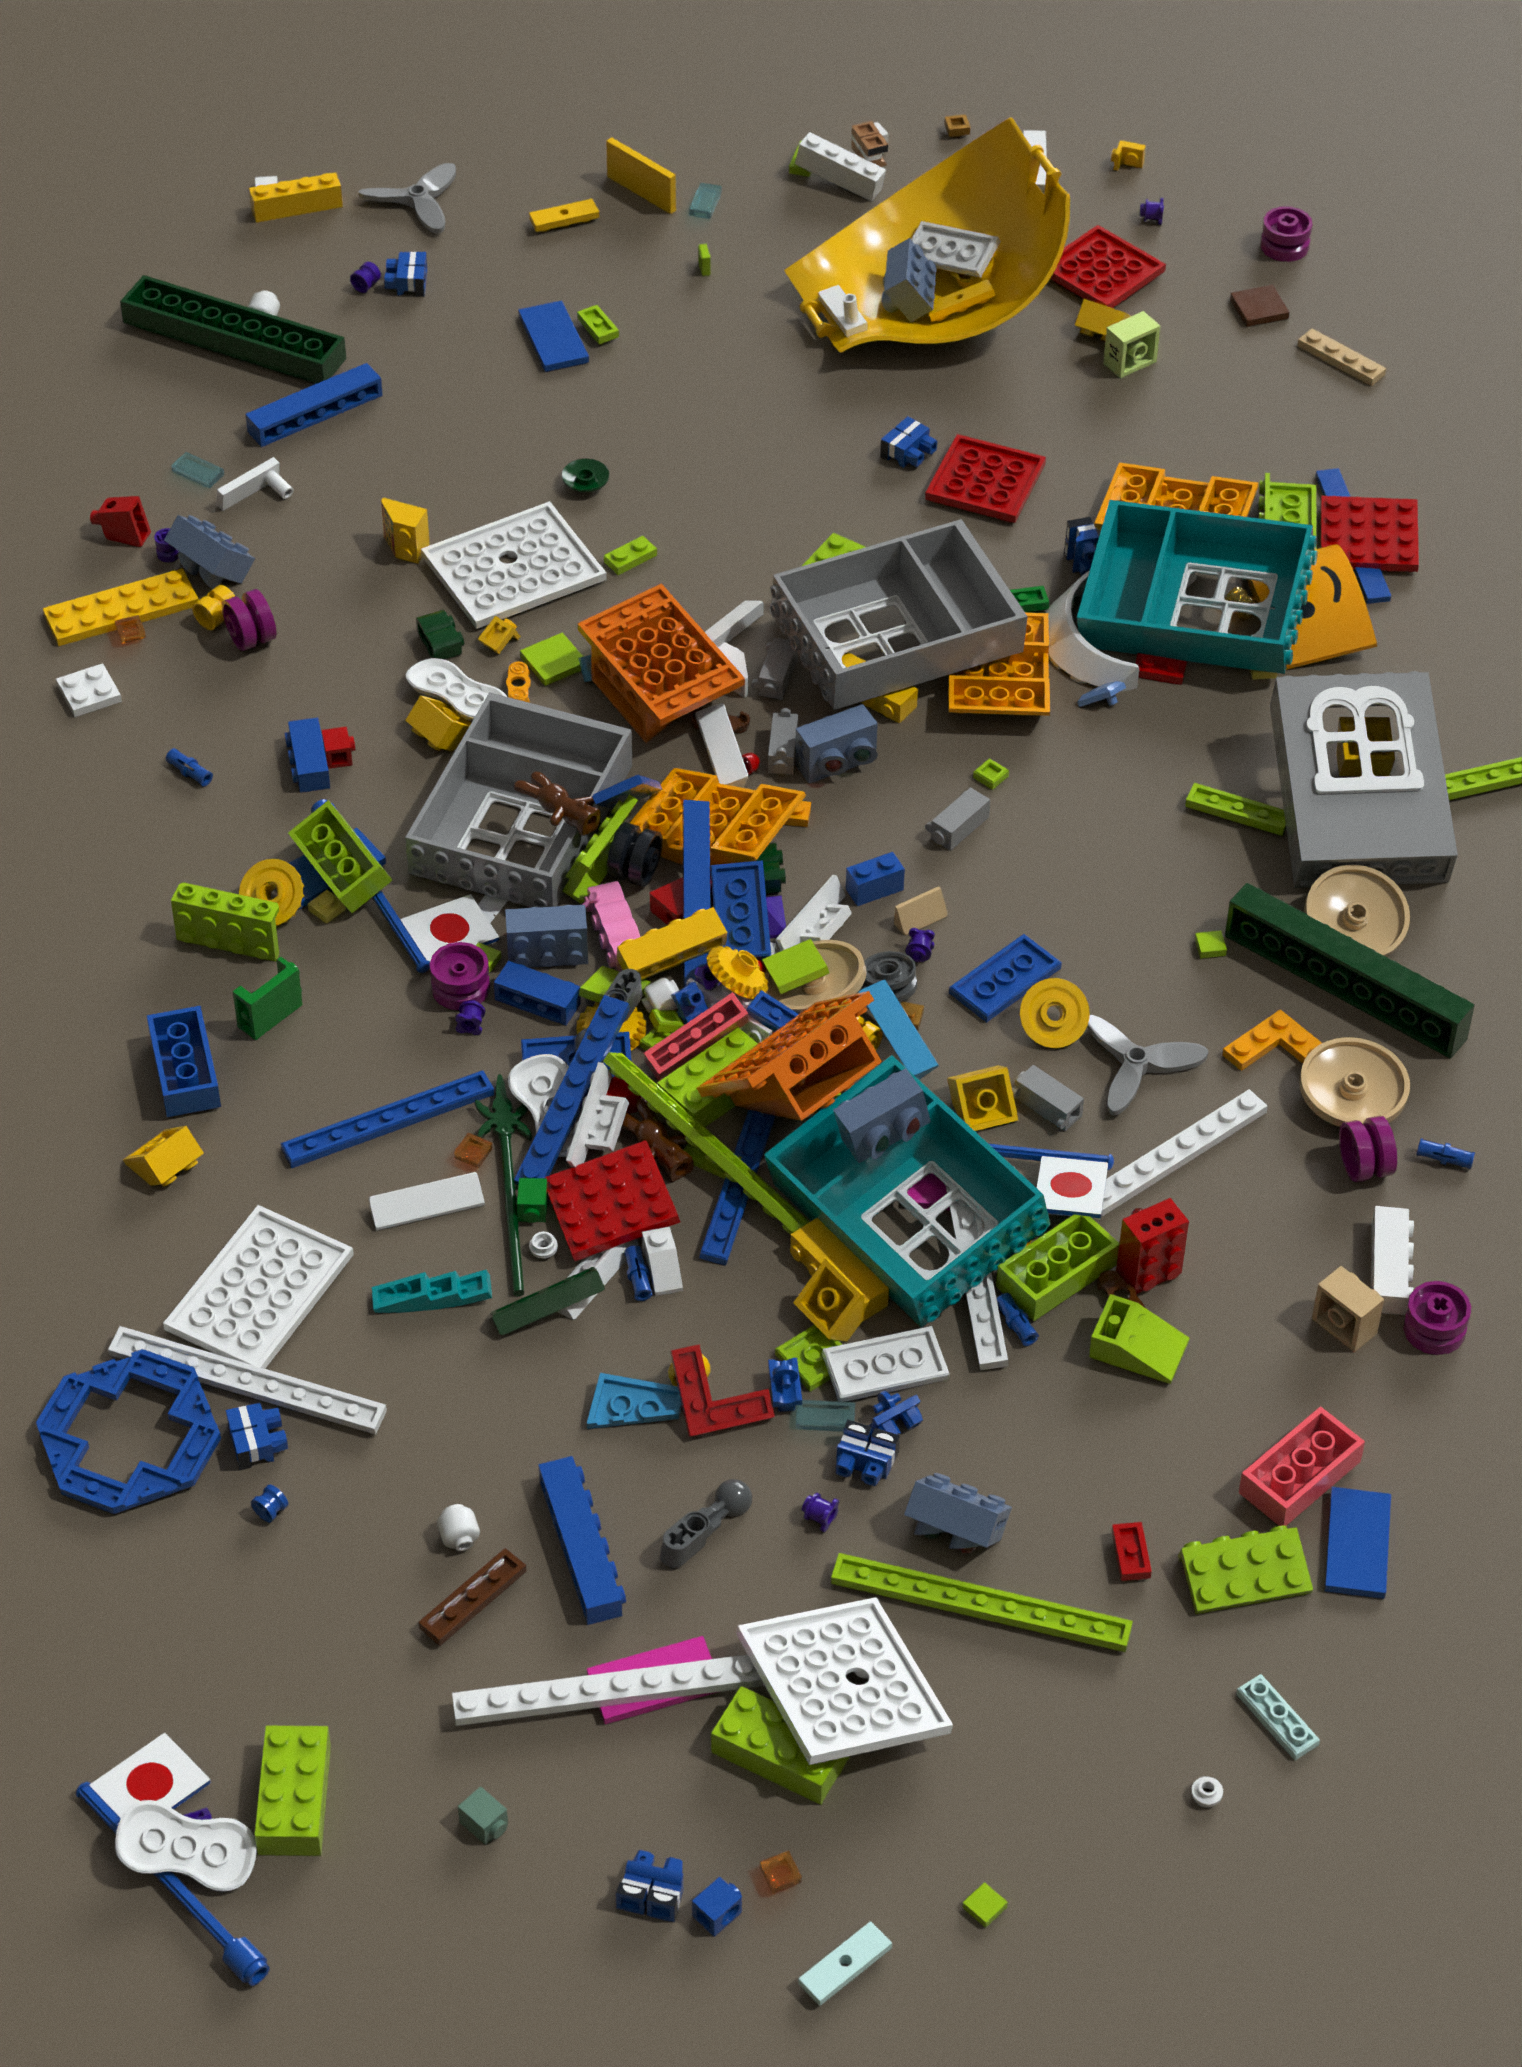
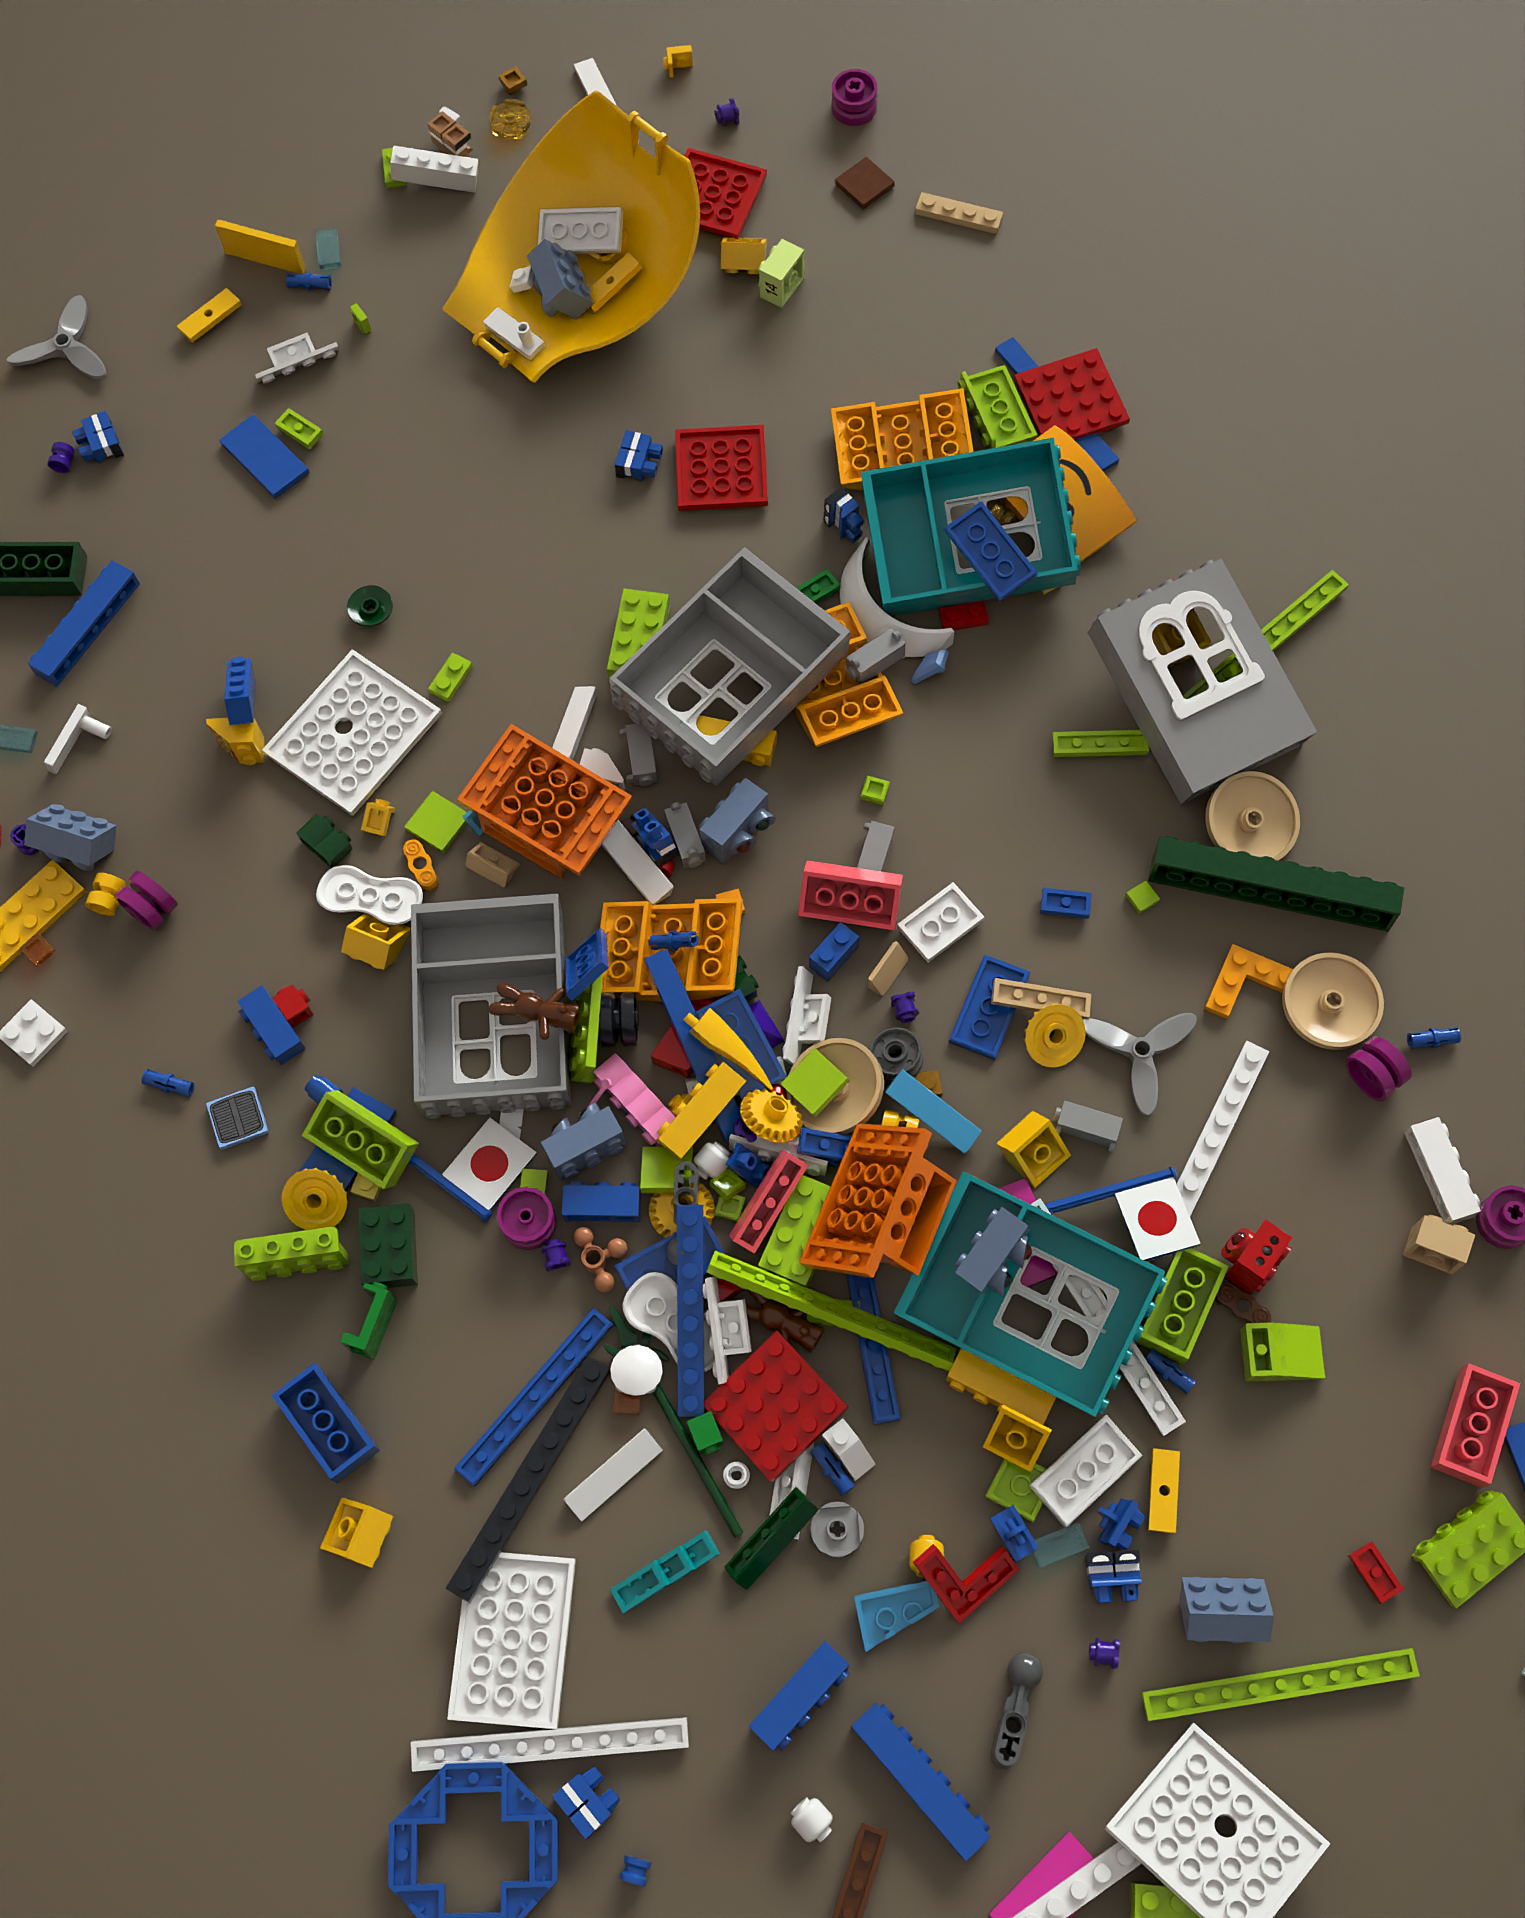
camera: 20 degrees left, 20 degrees up
(237, 815) = (237, 1118): none -> tile
(322, 951) = (388, 1245): none -> dark green brick
(344, 1173) = (527, 1480): none -> black plate
(426, 488) = (240, 691): none -> blue brick
(494, 1126) = (636, 1370): none -> white dish
(502, 1423) = (799, 1696): none -> blue brick
(506, 1032) = (616, 1249): none -> nougat piece
(583, 703) = (491, 864): none -> tan slope
(615, 1335) = (827, 1542): none -> light grey plate
(625, 267) = (292, 354): none -> white bracket
(672, 218) = (308, 281): none -> blue pin
(721, 893) = (719, 1037): none -> yellow piece
(723, 807) = (673, 940): none -> blue pin
(752, 736) = (654, 837): none -> blue hips
(874, 272) = (522, 279): none -> white plate
(915, 835) = (850, 895): none -> coral brick
(933, 152) = (514, 128): none -> clear yellow plate
(954, 1408) = (1165, 1474): none -> yellow tile
(994, 893) = (940, 922): none -> white plate
(1035, 969) = (1033, 997): none -> tan plate
(1048, 660) = (875, 656): none -> light grey brick
(1129, 921) = (1065, 903): none -> blue plate
(1203, 602) = (990, 551): none -> blue tile

